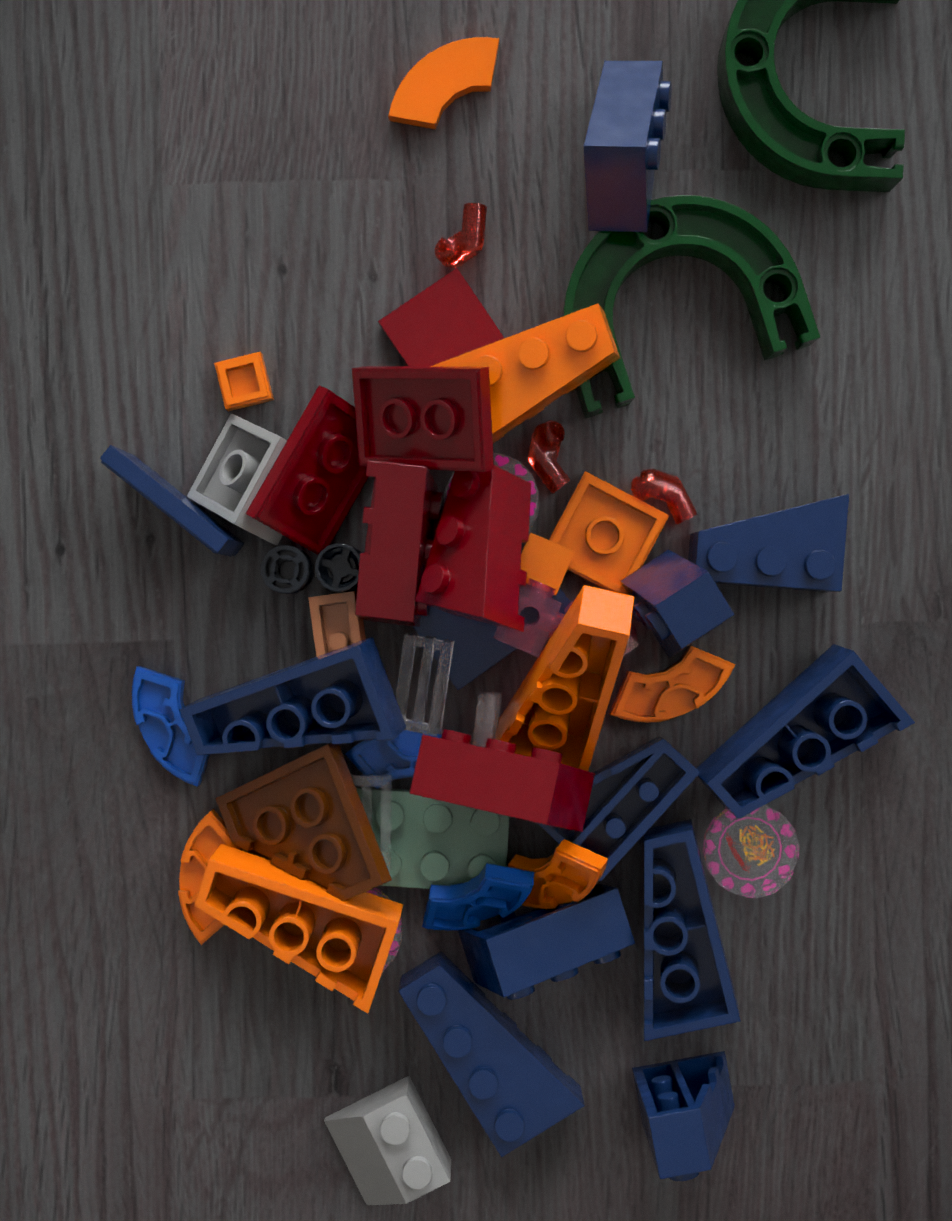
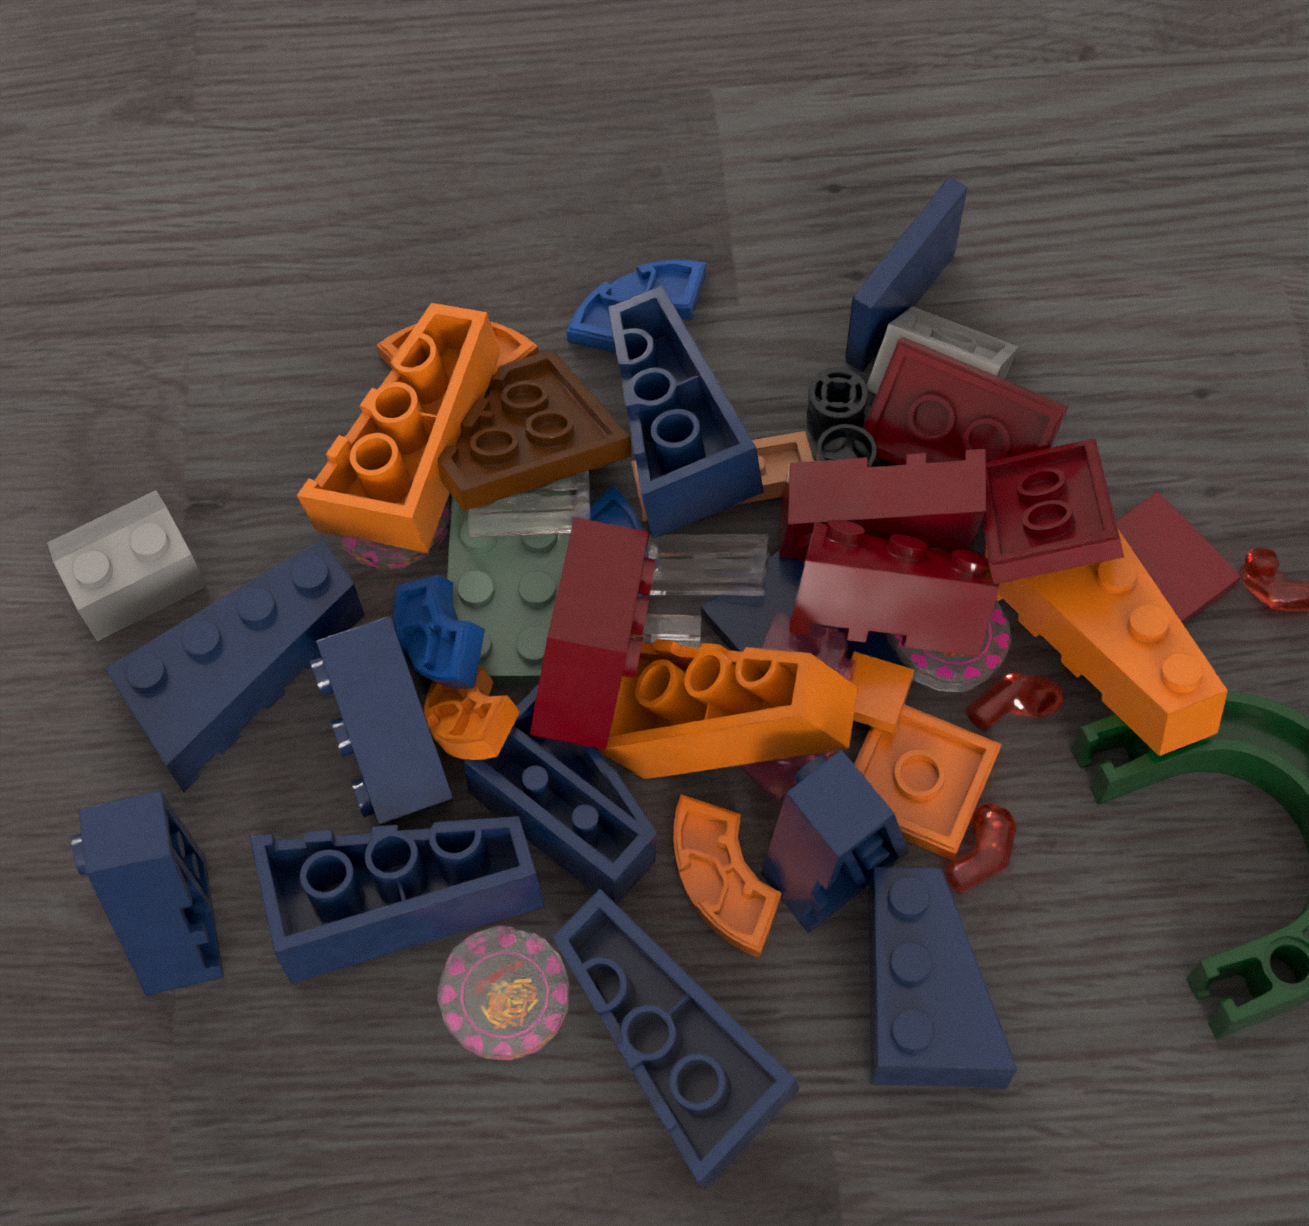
camera: 90 degrees right, 25 degrees down
(244, 381) = (1059, 357): orange tile -> none

